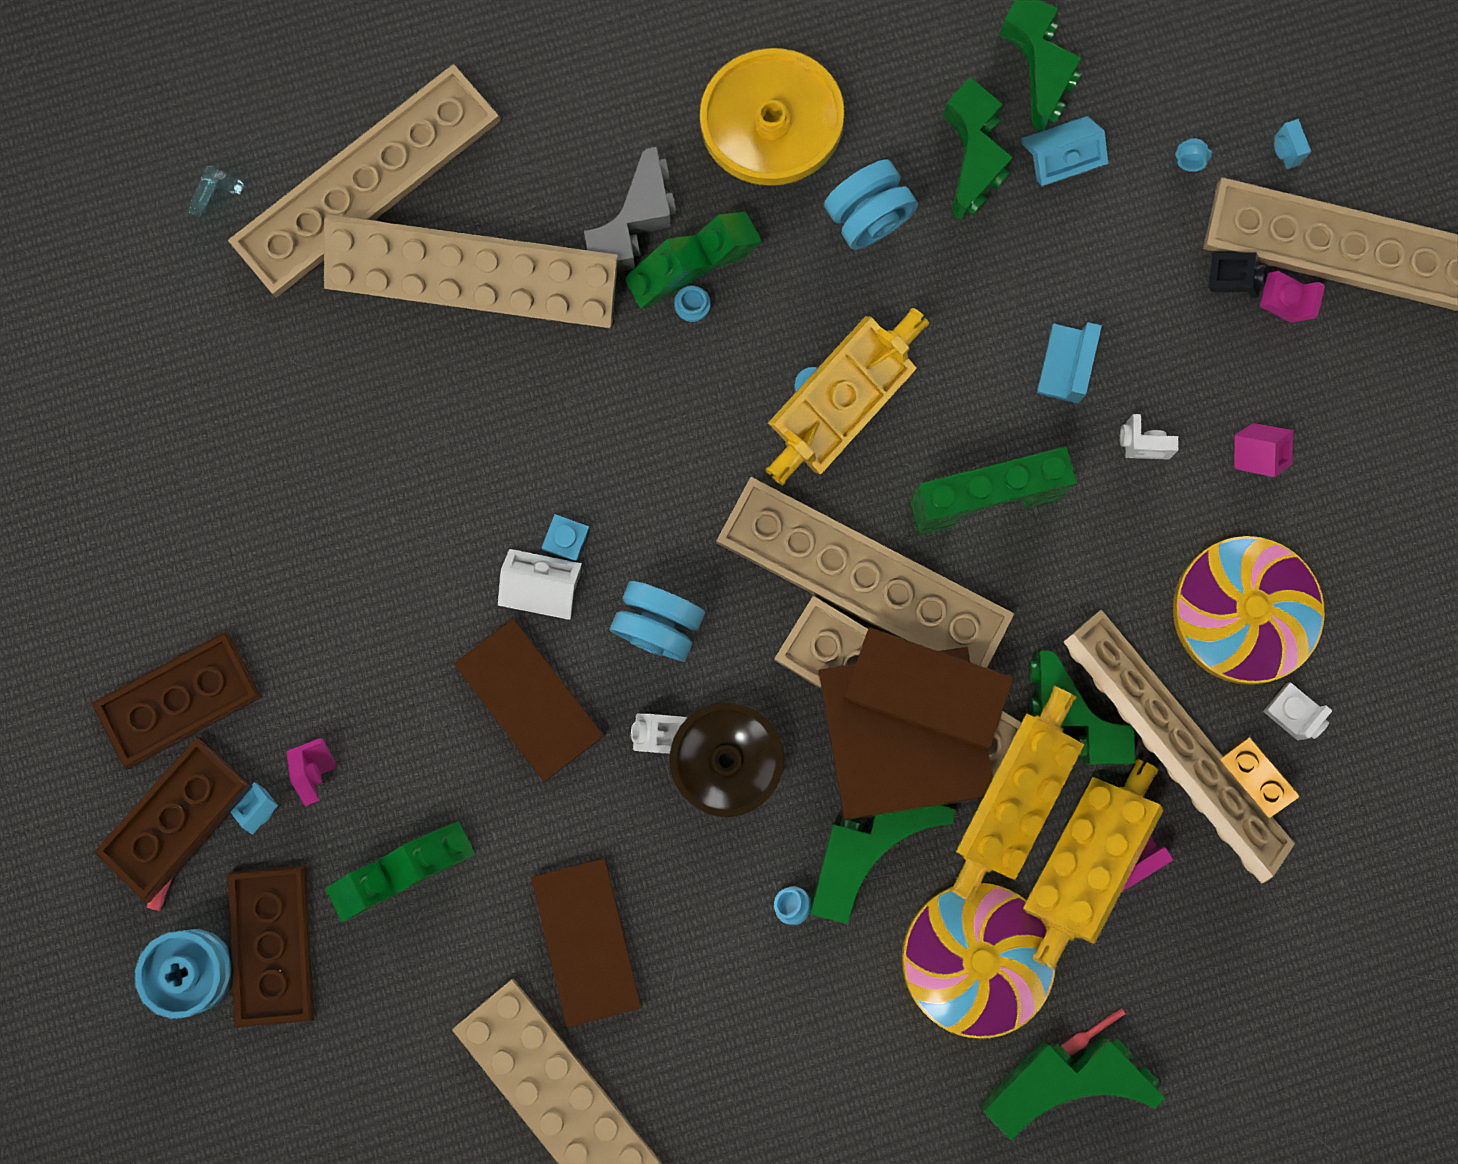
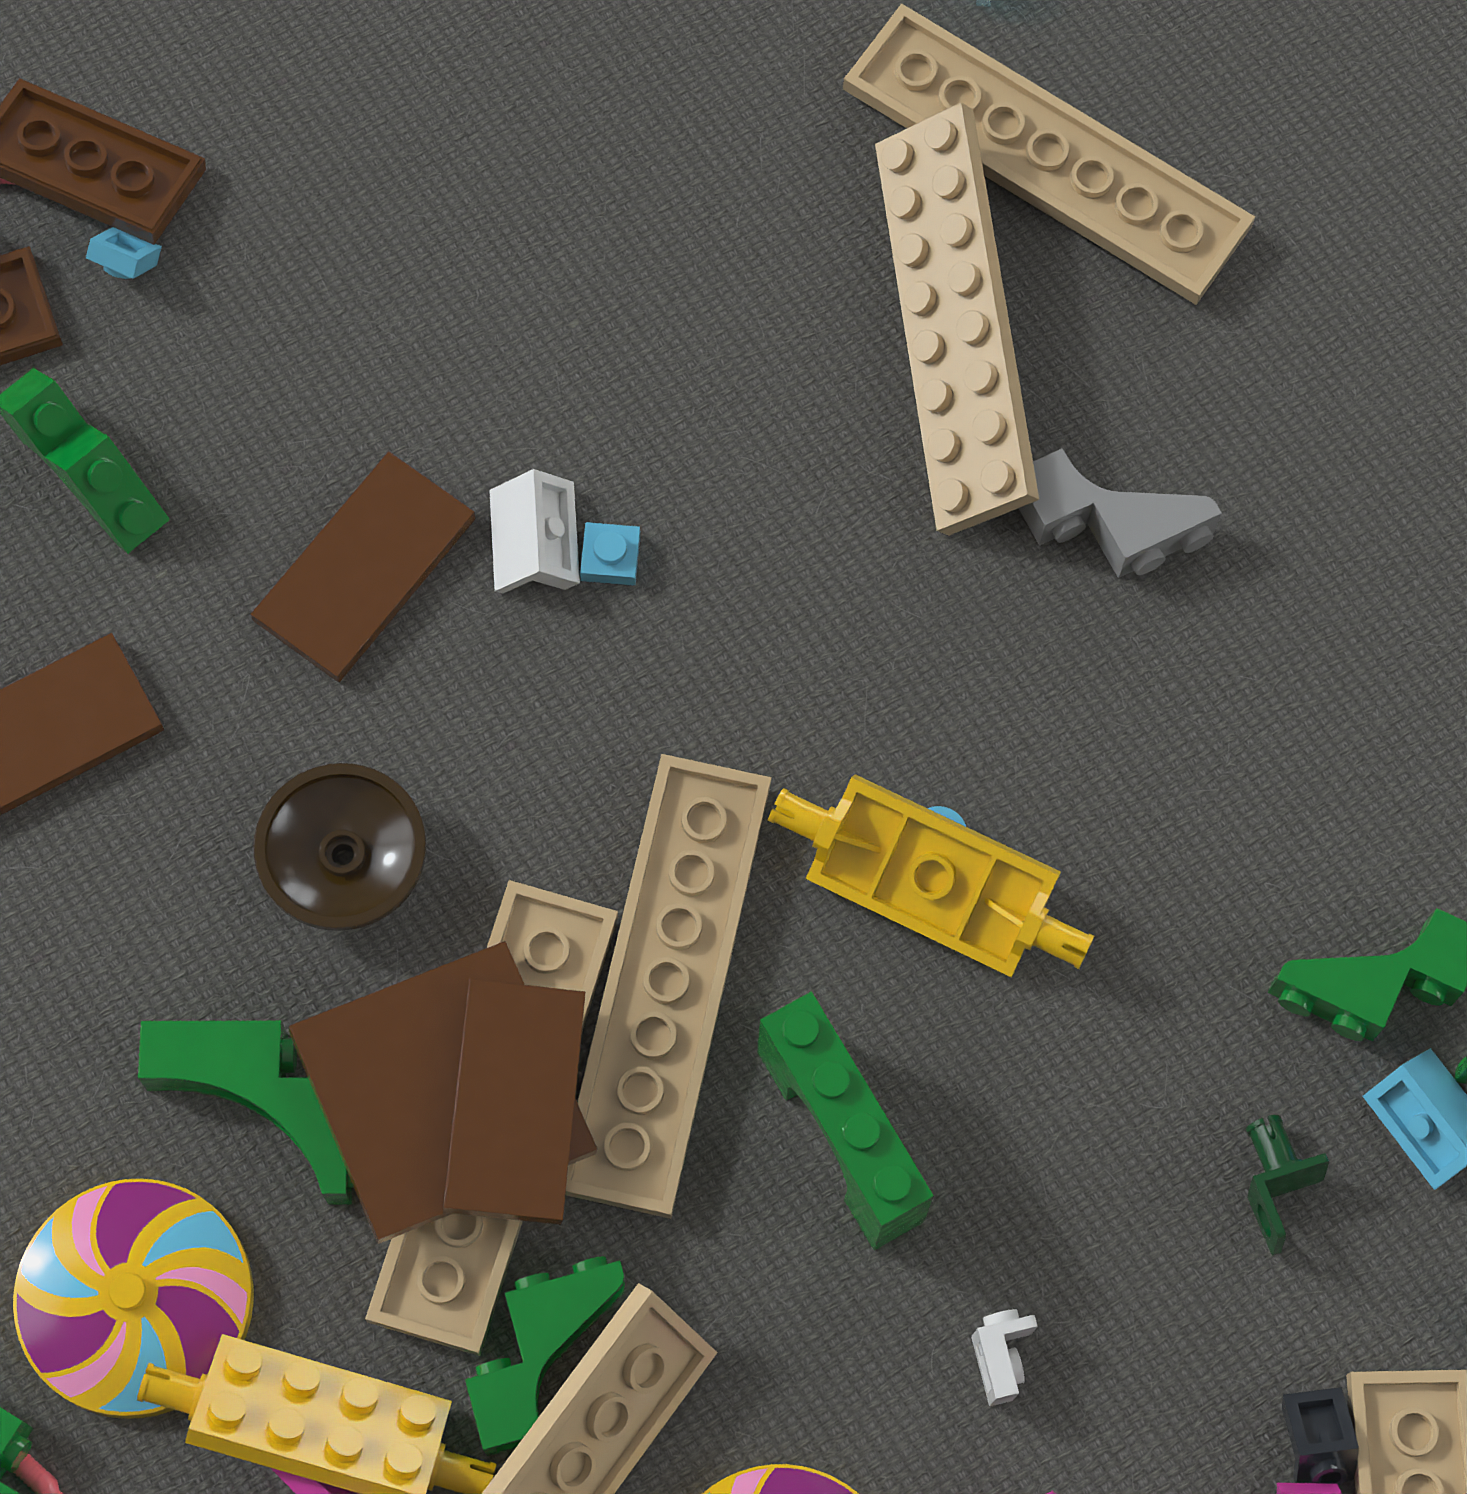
camera: 75 degrees right, 10 degrees down
(176, 700) = (249, 123): reddish brown tile -> none
(305, 767) = (191, 298): dark pink bracket -> none
(655, 732) = (358, 741): white bracket -> none
(658, 618) = (508, 695): medium azure wheel -> none
(686, 258) = (1066, 598): green arch -> none
(692, 303) = (1009, 634): medium azure plate -> none
(772, 116) = (1326, 664): yellow dish -> none
(792, 905) = (152, 999): medium azure plate -> none
(870, 204) = (1236, 835): medium azure wheel -> none
(1019, 797) = (386, 1277): yellow plate -> none
(1069, 362) = (1094, 1206): medium azure panel -> none
(1077, 246) = (1281, 1175): none -> dark green bracket

